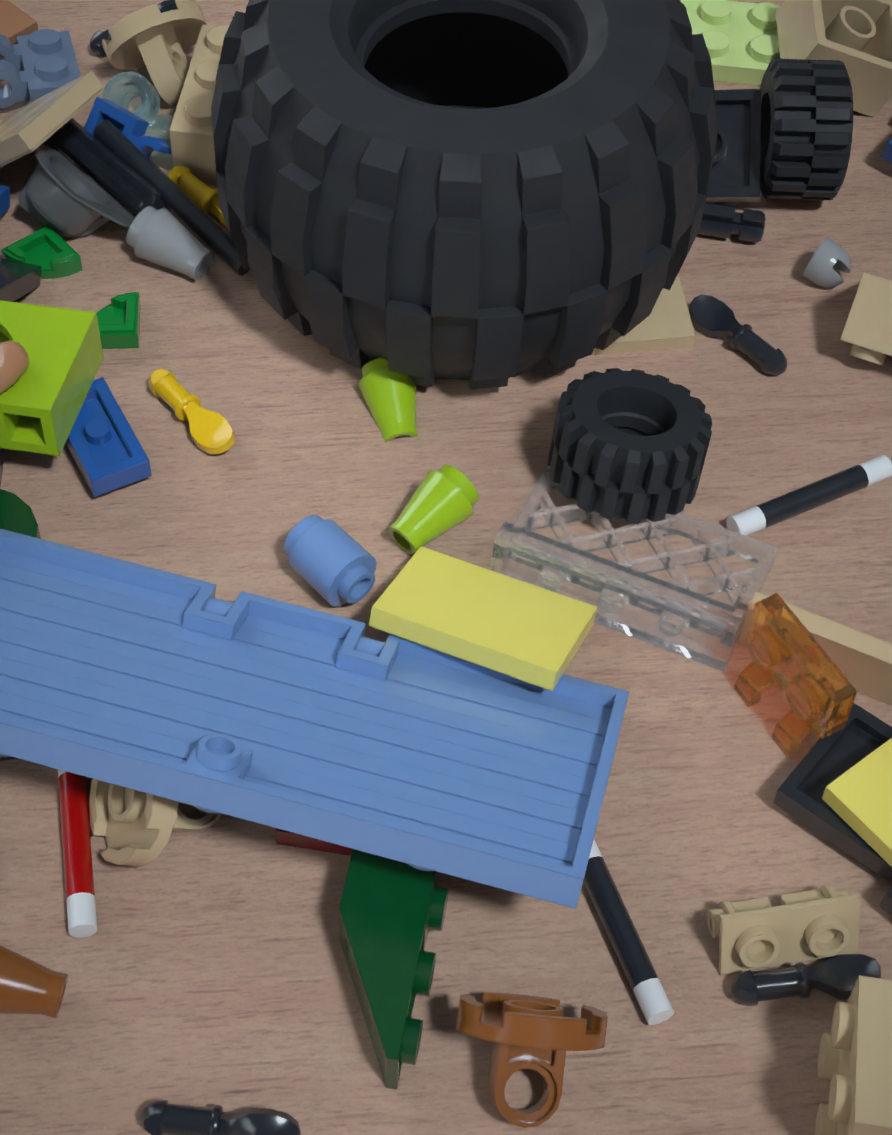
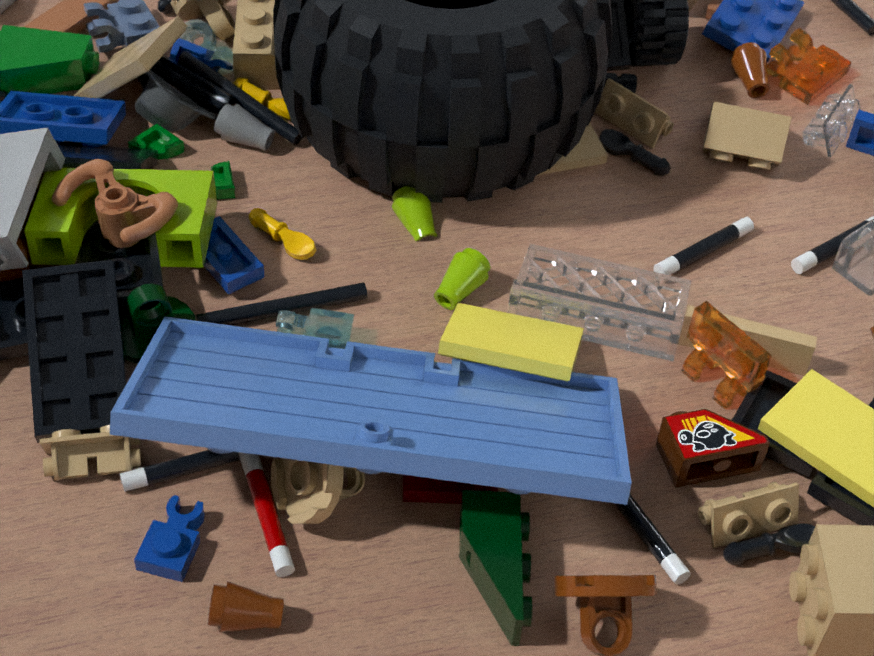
camera: 10 degrees left, 5 degrees down
(168, 523) = (292, 303): none -> black bar
(213, 560) = (320, 323): none -> clear light blue plate
(330, 560) = (400, 317): medium blue brick -> none
(629, 445) = (584, 223): black tyre -> none
(741, 818) = (708, 447): none -> slope
(747, 275) = (633, 114): none -> tan hinge
(825, 261) = (683, 103): light grey hinge -> none

